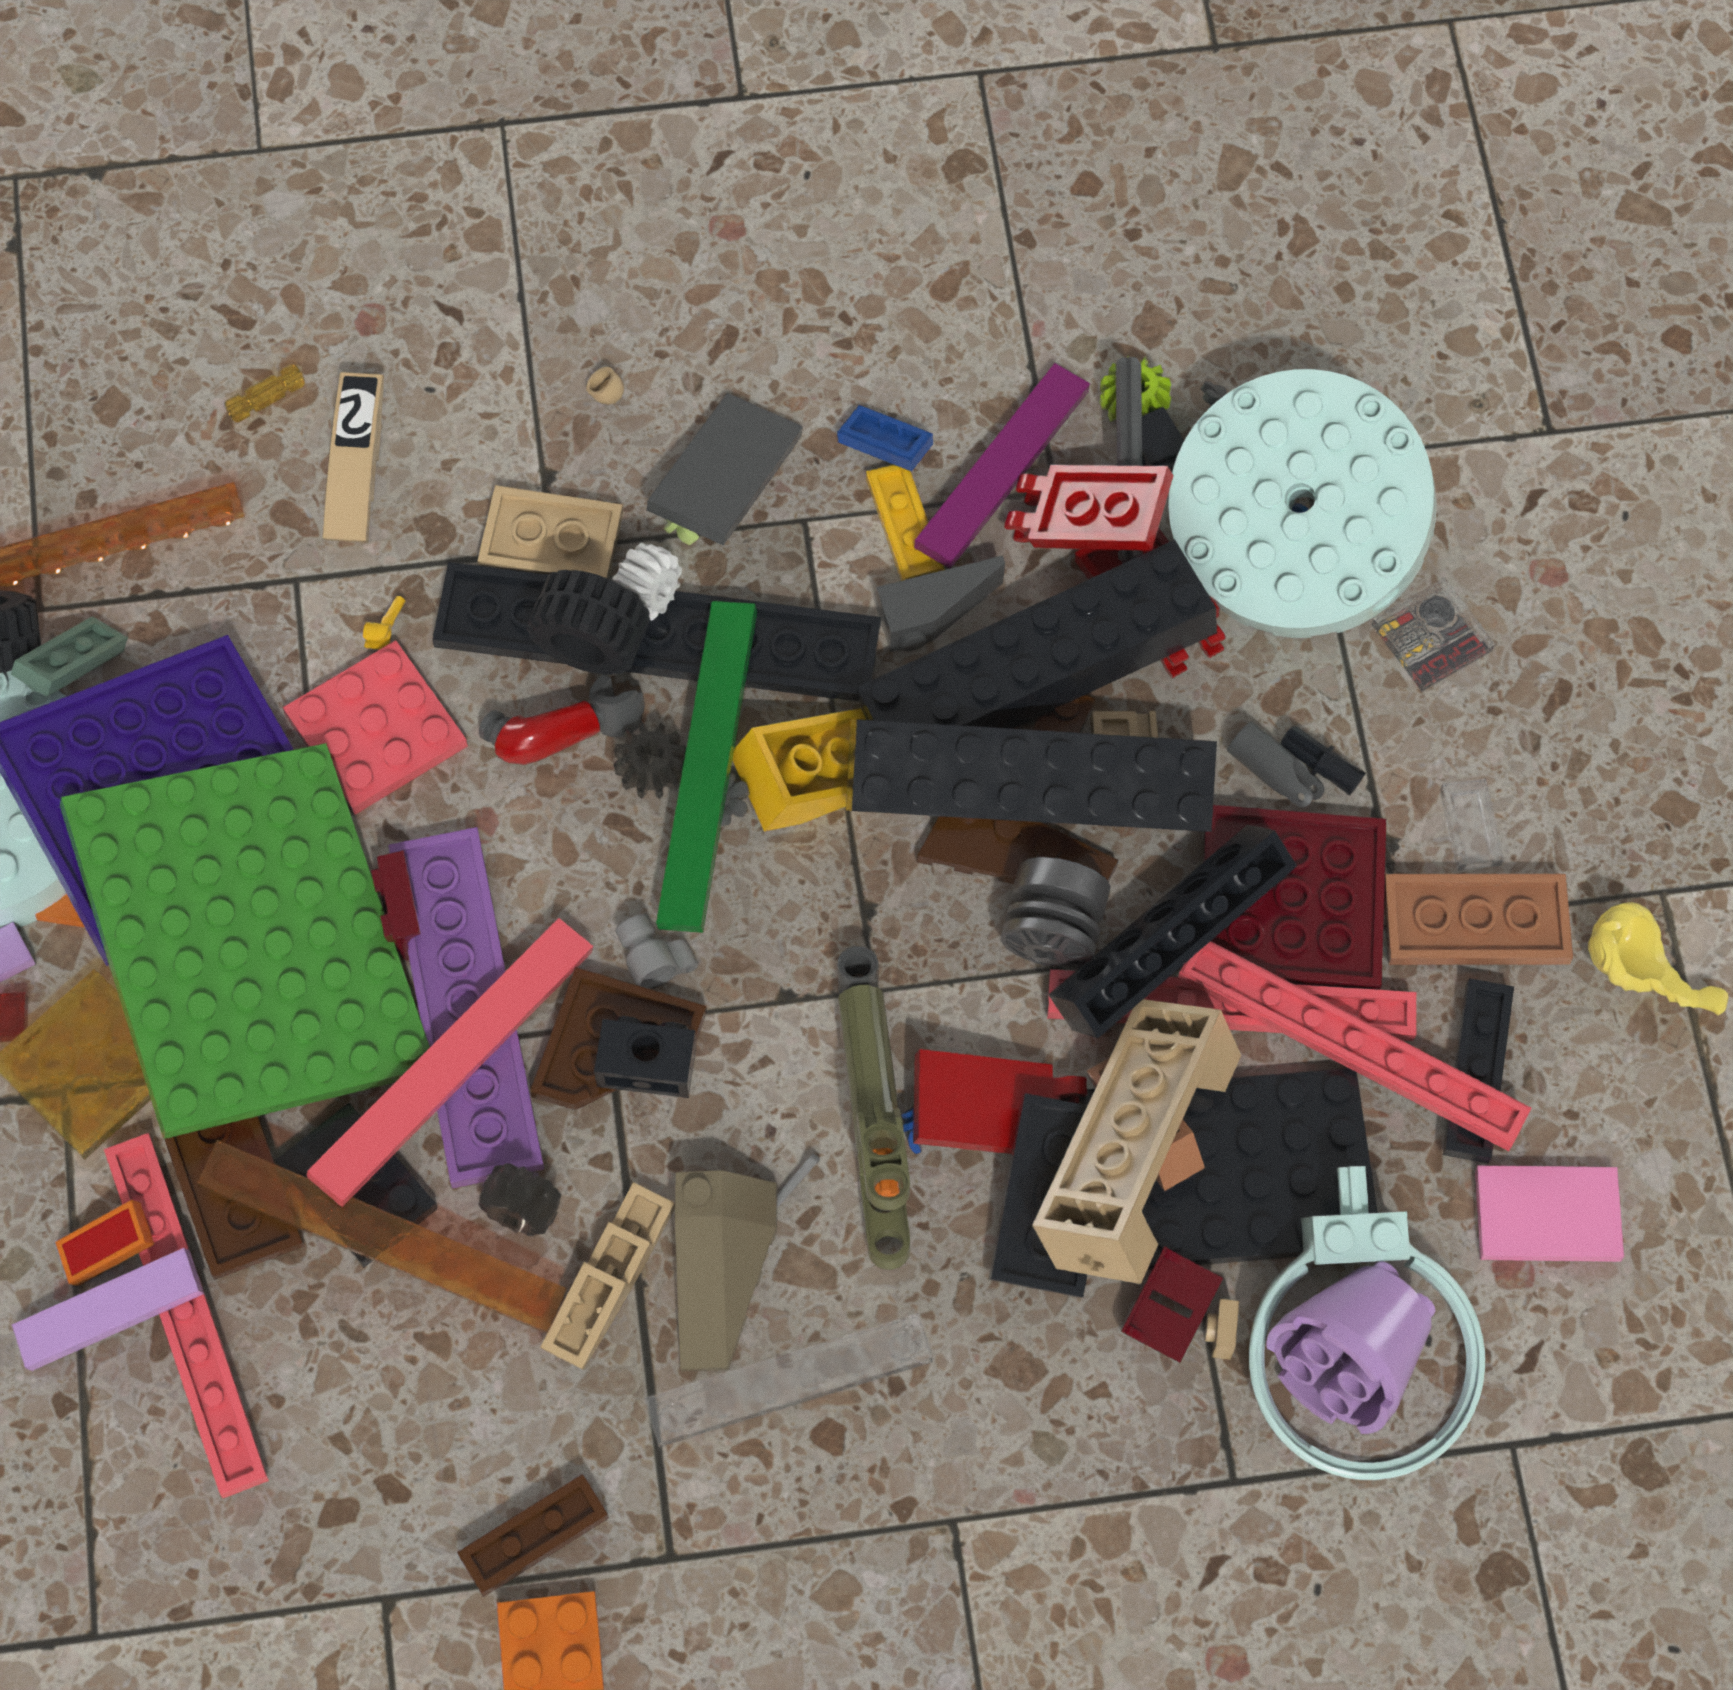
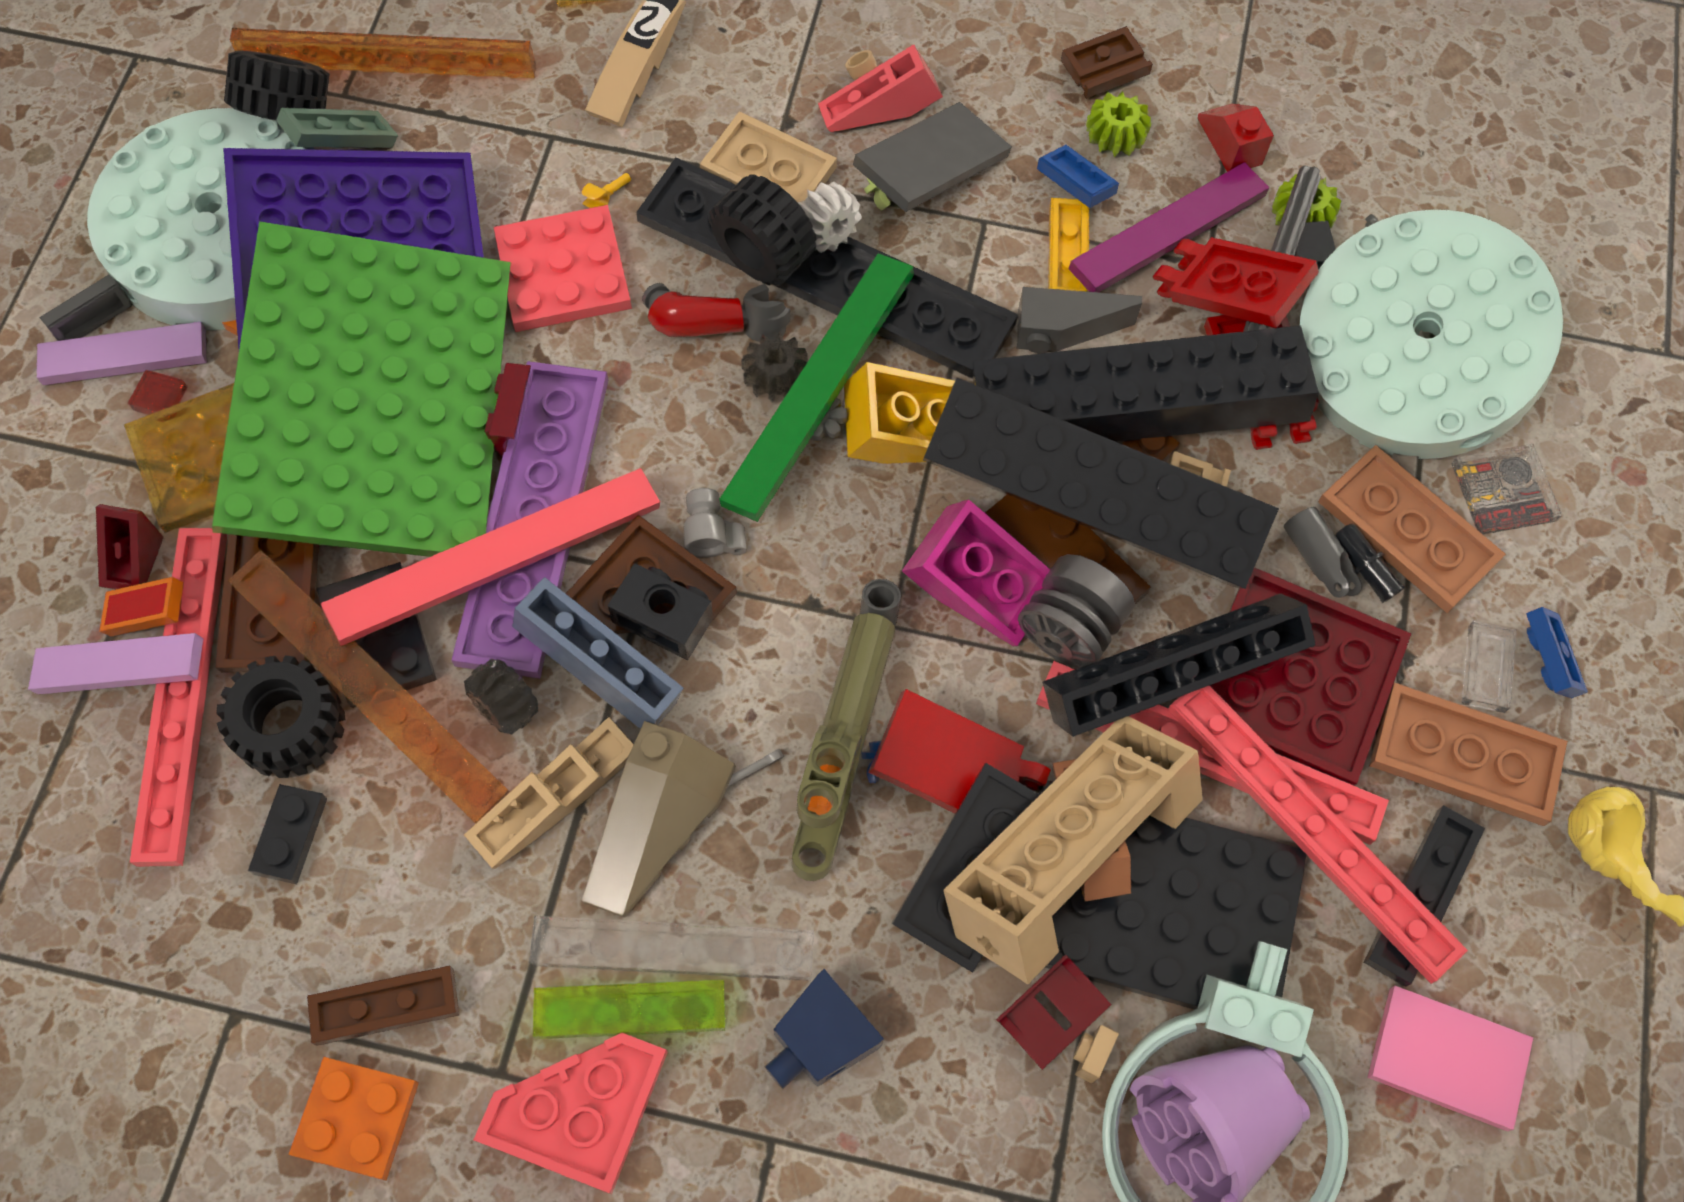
camera: 20 degrees right, 0 degrees up
(56, 1190) = (125, 546): none -> dark red slope
(284, 1269) = (258, 694): none -> black tyre
(360, 1412) = (287, 834): none -> black plate
(600, 1125) = (595, 655): none -> sand blue brick
(644, 412) = (884, 94): none -> coral slope
(761, 1561) = (577, 1111): none -> coral plate
(771, 1451) = (629, 1009): none -> clear neon green plate
(867, 293) = (1106, 62): none -> reddish brown plate
(907, 363) = (1118, 124): none -> lime gear
(941, 903) = (977, 570): none -> dark pink slope
(964, 1406) = (821, 1035): none -> dark blue torso
(1035, 333) = (1237, 134): none -> red slope
(1352, 709) = (1412, 528): none -> nougat plate
(1523, 779) = (1550, 638): none -> blue plate

